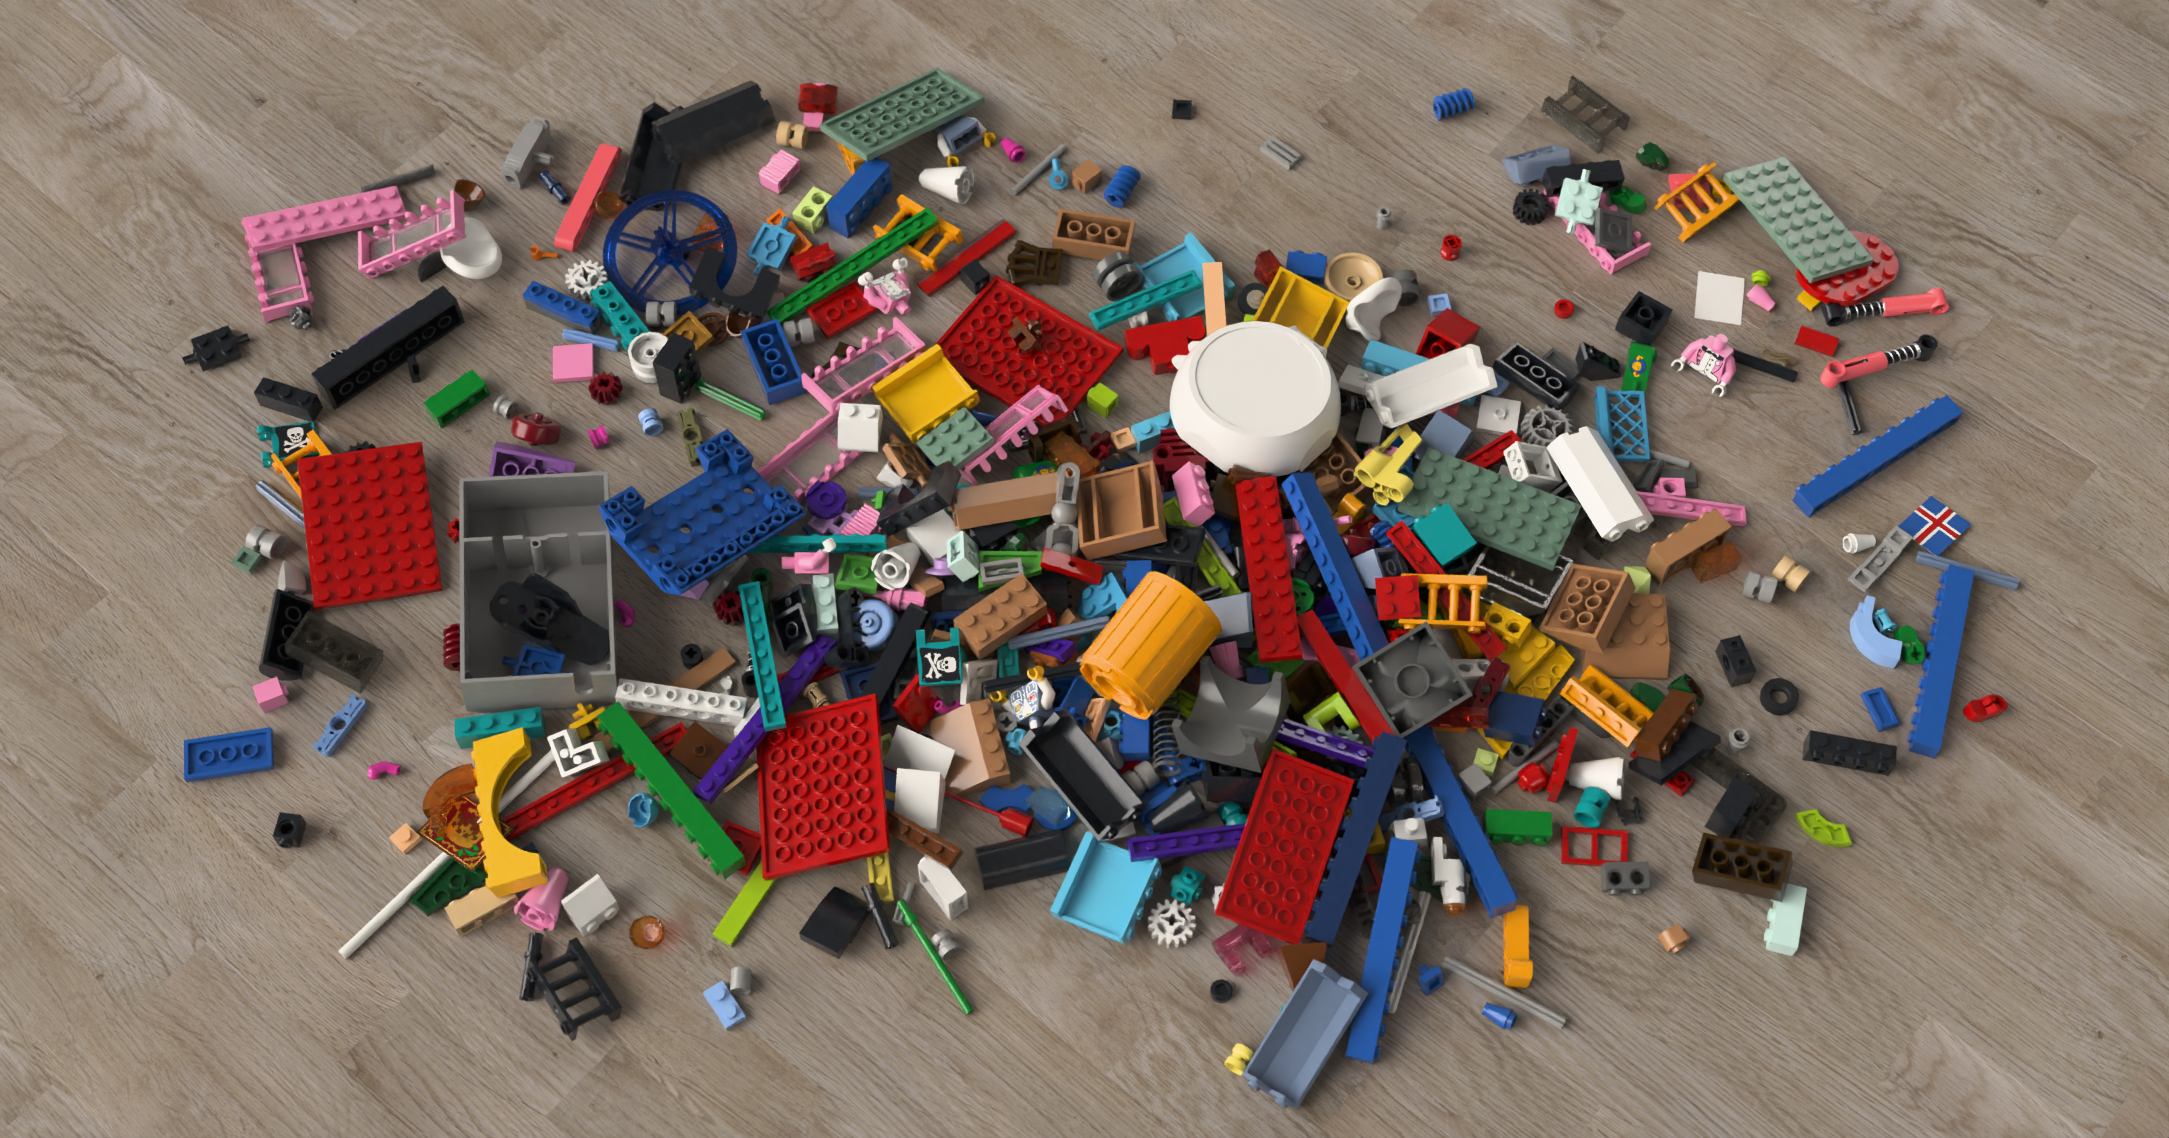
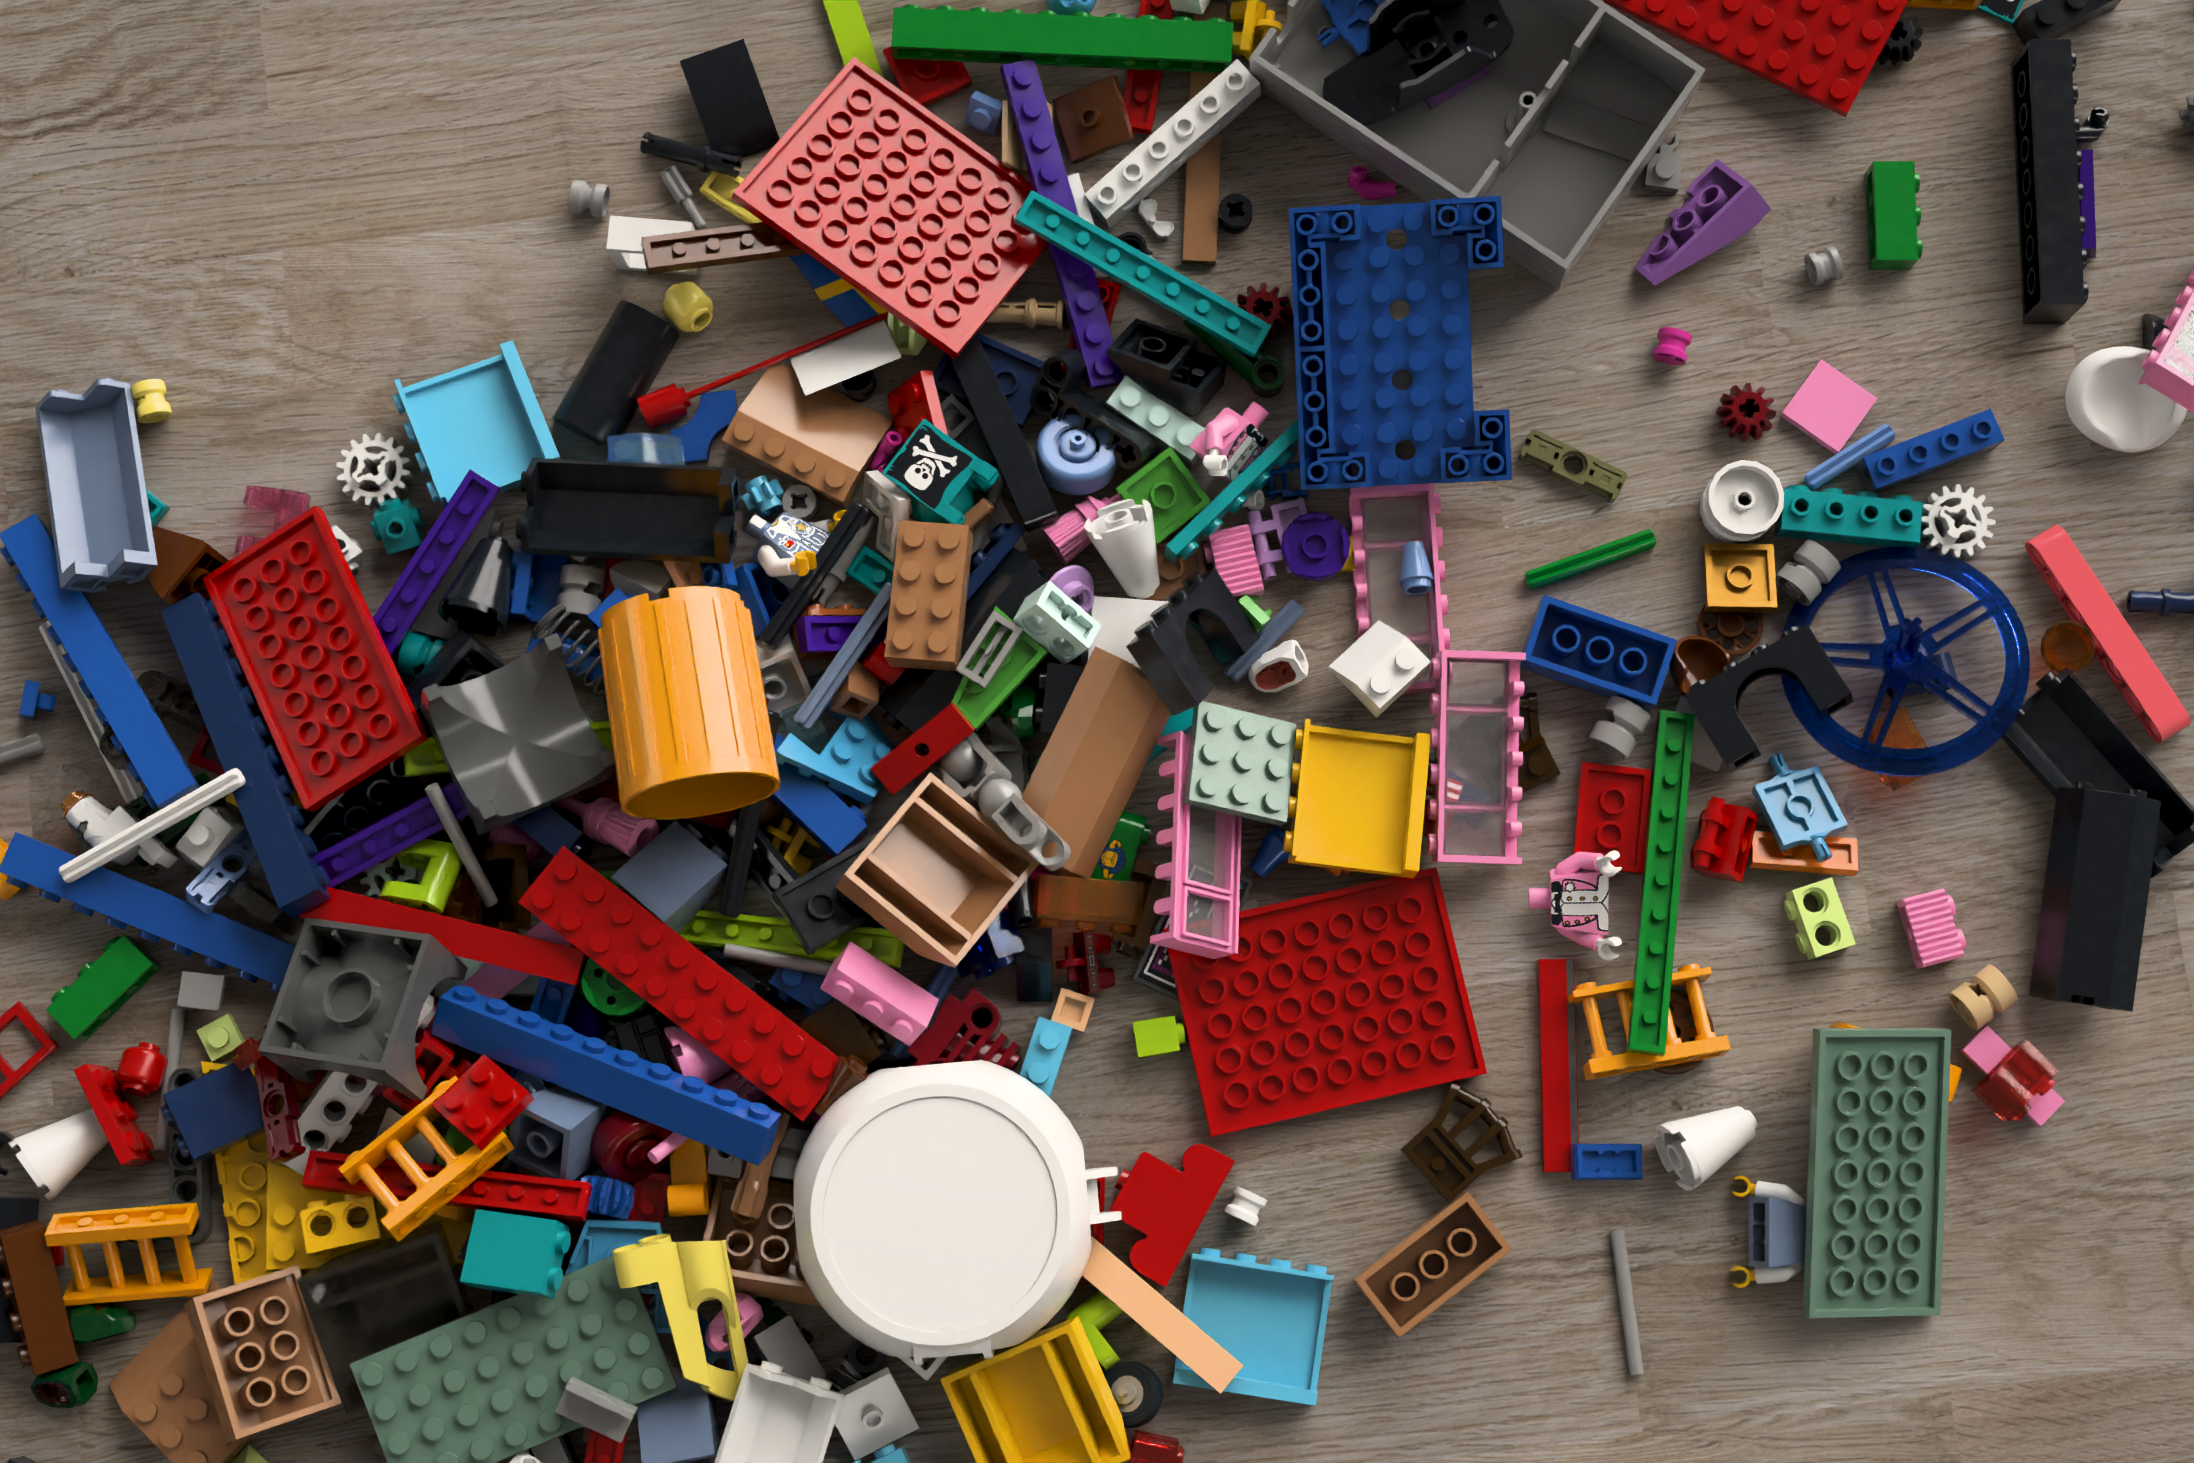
camera: 135 degrees right, 20 degrees up
(413, 369) = (1990, 197): black tile -> none
(536, 429) = (1751, 274): dark red wheel -> none
(537, 254) = (2058, 500): orange hand -> none
(650, 422) = (1646, 430): light blue wheel -> none
(677, 368) = (1683, 508): black brick -> none
(738, 801) = (984, 113): none -> medium blue plate
(799, 455) = (1415, 569): none -> medium blue cone
(859, 196) = (1780, 991): blue brick -> none
(907, 460) = (1283, 692): medium nougat plate -> none
(913, 921) = (648, 182): green bar -> none
(920, 797) = (787, 309): white slope -> none
(924, 582) = (1061, 552): medium nougat tile -> none
(966, 847) = (688, 307): none -> light yellow head
(974, 276) = (1508, 1043): black brick -> none
(989, 212) = (1606, 1161): none -> blue plate
(1014, 151) = (1690, 1292): dark pink cone -> none
(1019, 330) = (1338, 1021): reddish brown hips -> none
(1057, 172) = (1588, 1316): dark azure plate -> none
(1086, 176) = (1549, 1352): medium nougat brick -> none
(1117, 276) = (1334, 1230): dark grey wheel -> none
(1121, 186) = (1488, 1388): blue piece -> none
(1145, 300) = (1254, 1232): teal tile -> none
(1221, 991) = (250, 458): black tile -> none
(1301, 713) = (461, 844): none -> light grey bar
(1428, 841) = (152, 825): none -> white axle
(1468, 461) = (596, 1409): none -> light grey panel
(1591, 807) = (38, 1100): teal wheel -> none

